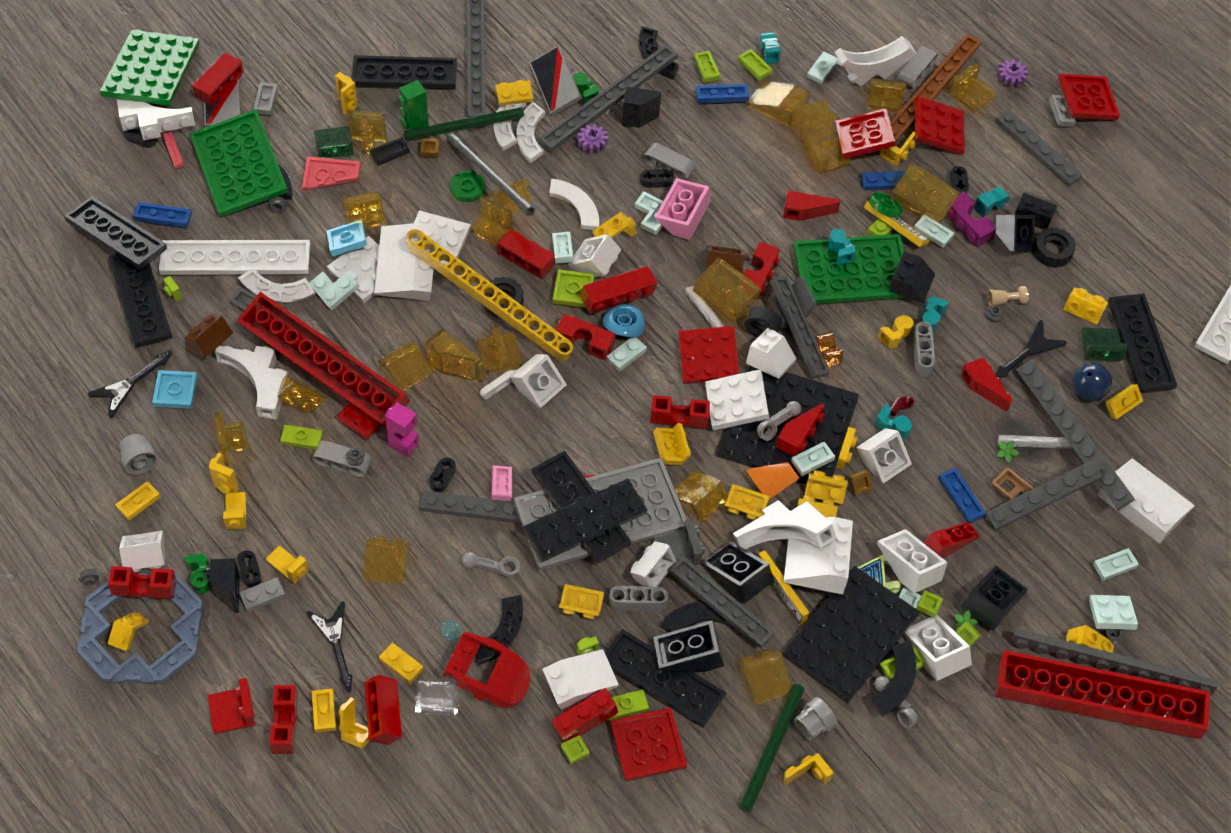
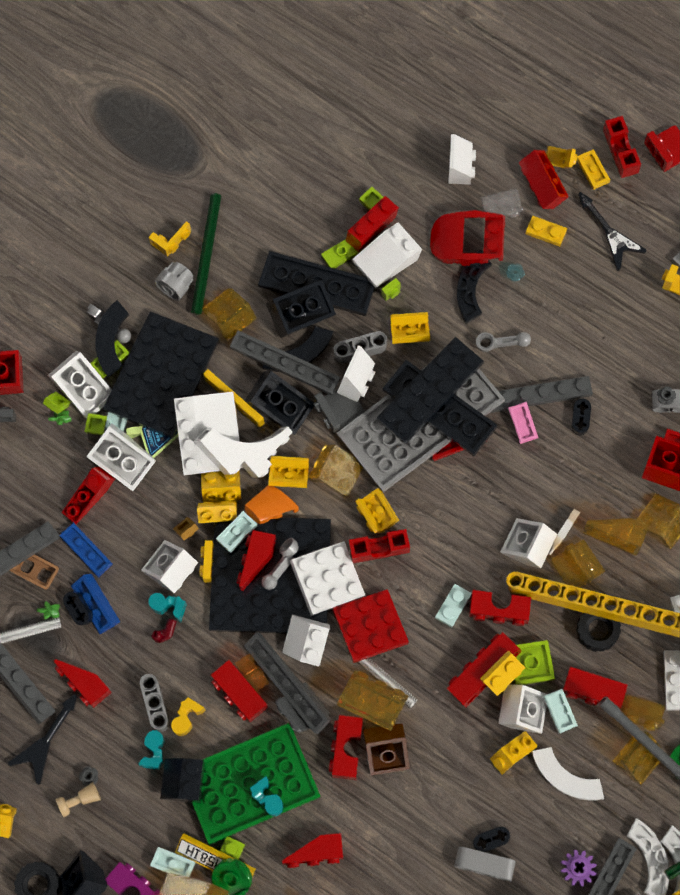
camera: 170 degrees right, 15 degrees up
(386, 559) = (598, 318): clear yellow bracket -> none
(400, 431) = (635, 431): dark pink arch -> none
(464, 757) = (461, 161): none -> white slope
(605, 273) = (502, 673): none -> yellow bracket
(625, 320) = (466, 634): dark azure hat -> none
(648, 744) = (311, 222): red plate -> none
(650, 206) = (476, 793): light aqua plate -> none
(683, 208) = (449, 798): bright pink slope -> none
(763, 315) = (325, 675): black tyre -> none
(845, 335) = (238, 691): none -> red brick
(961, 448) = (103, 614): none -> blue slope
(979, 445) = (79, 607): none -> black beam
(994, 598) = (36, 448): black slope -> none

